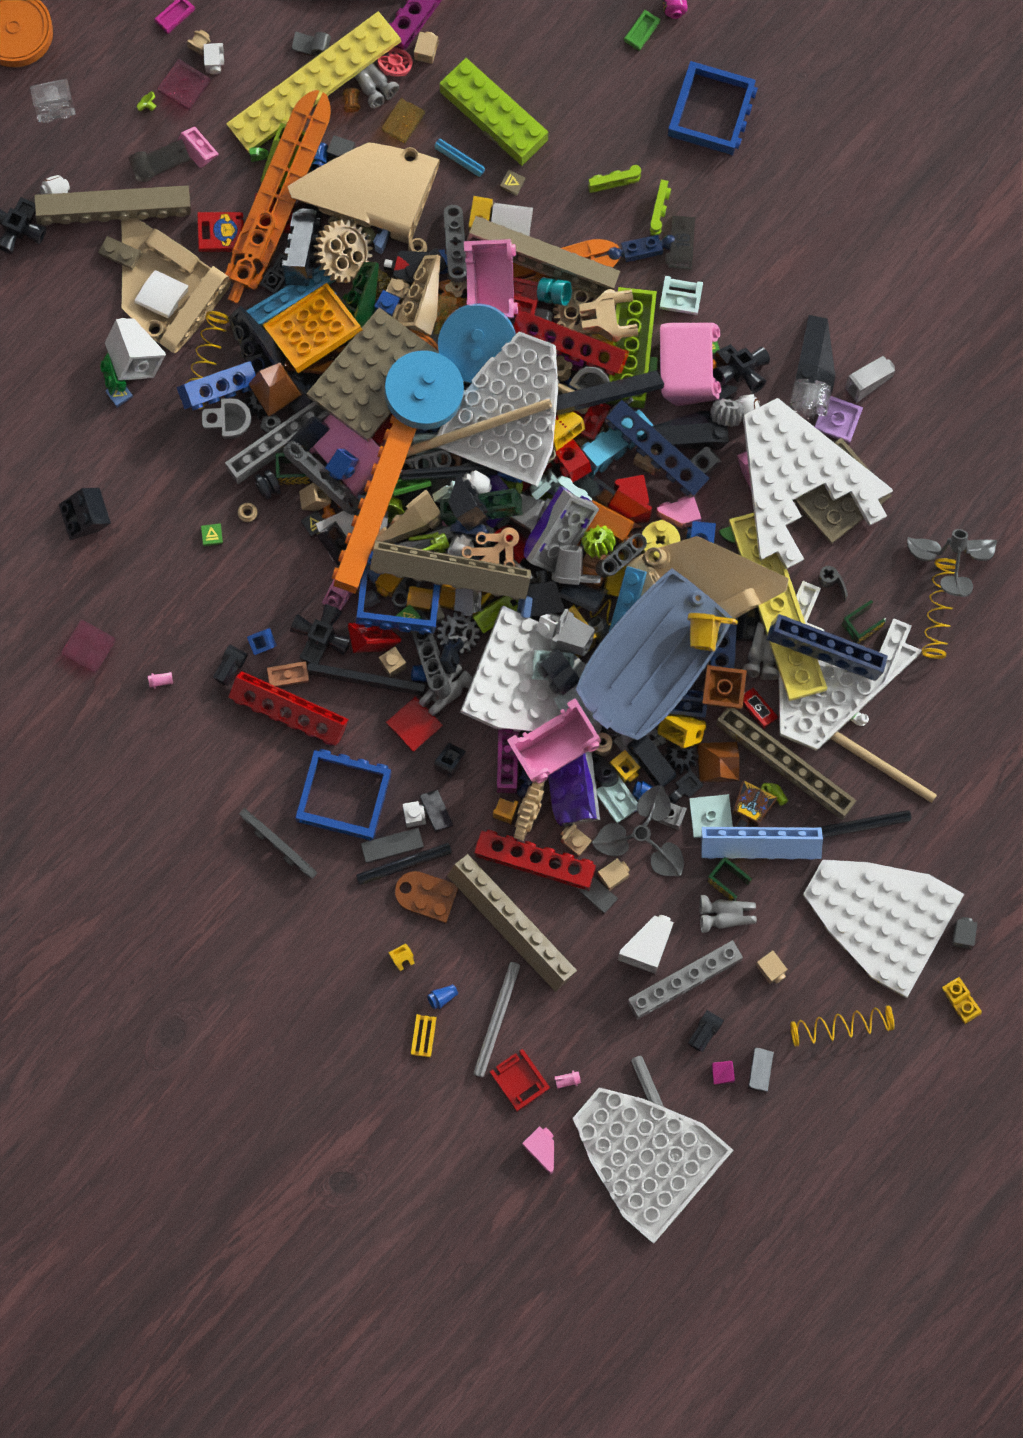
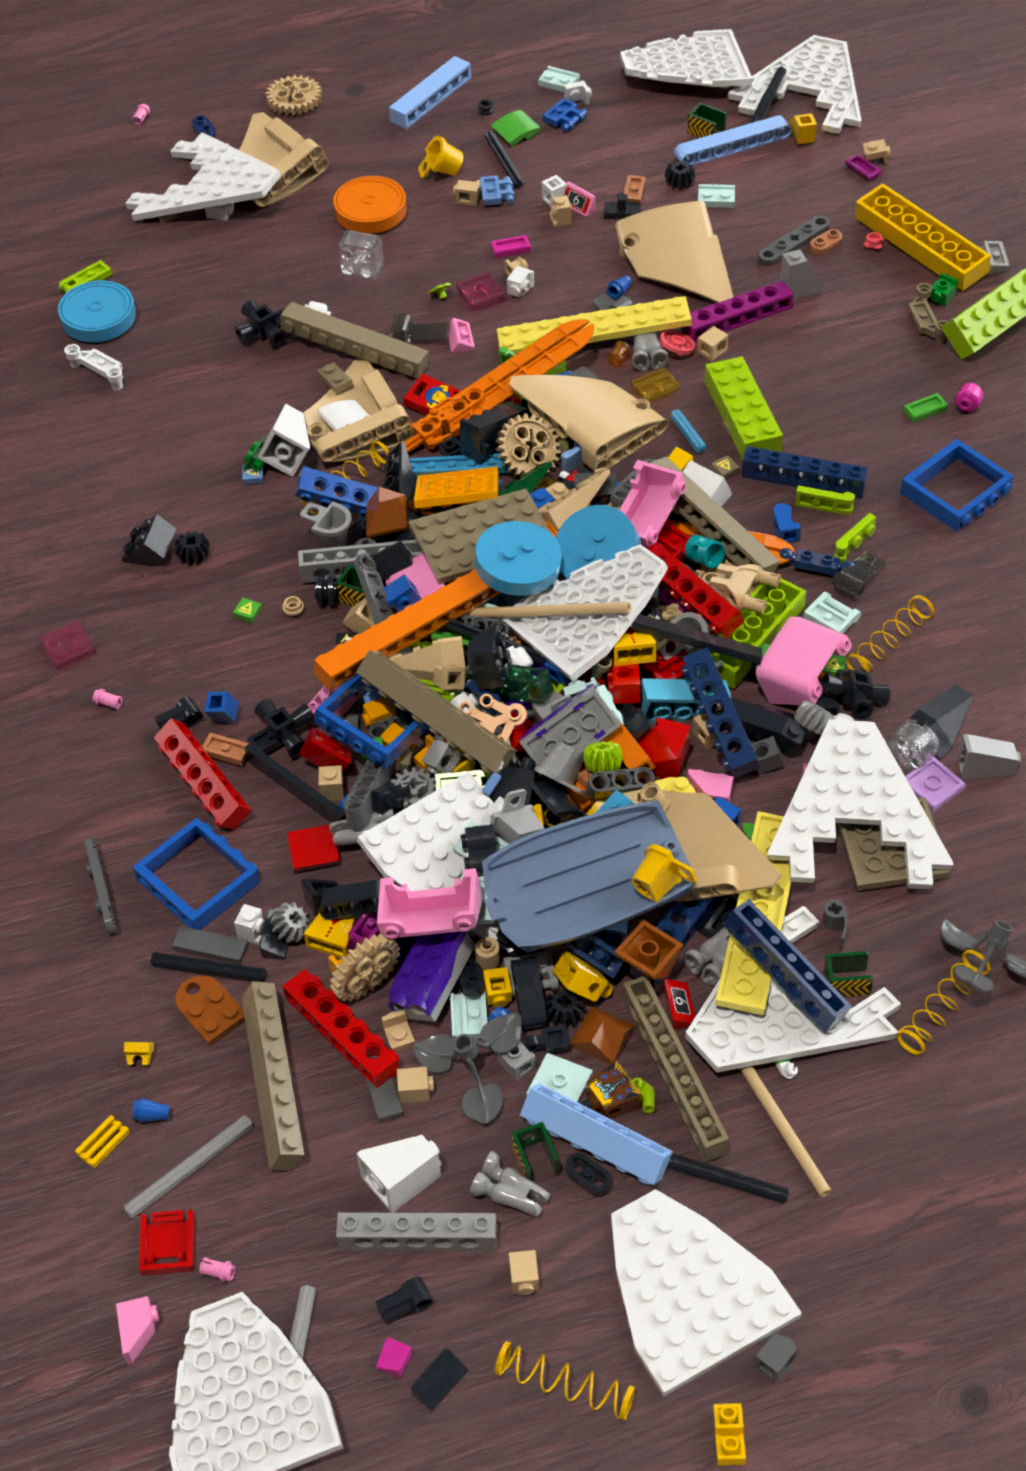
camera: 35 degrees right, 25 degrees down
(119, 493) = (192, 547): none -> black gear
(304, 20) = (618, 287): none -> blue cone
(433, 527) = (449, 676): none -> tan brick
(443, 797) = (290, 922): none -> light grey gear
(477, 785) = (330, 935): none -> yellow torso
(485, 759) = (350, 900): none -> black beam
(583, 158) = (803, 471): none -> dark blue brick
(594, 221) = (784, 525): none -> blue leg
(729, 334) = (863, 660): none -> yellow piece
(771, 873) = (589, 1175): none -> black plate

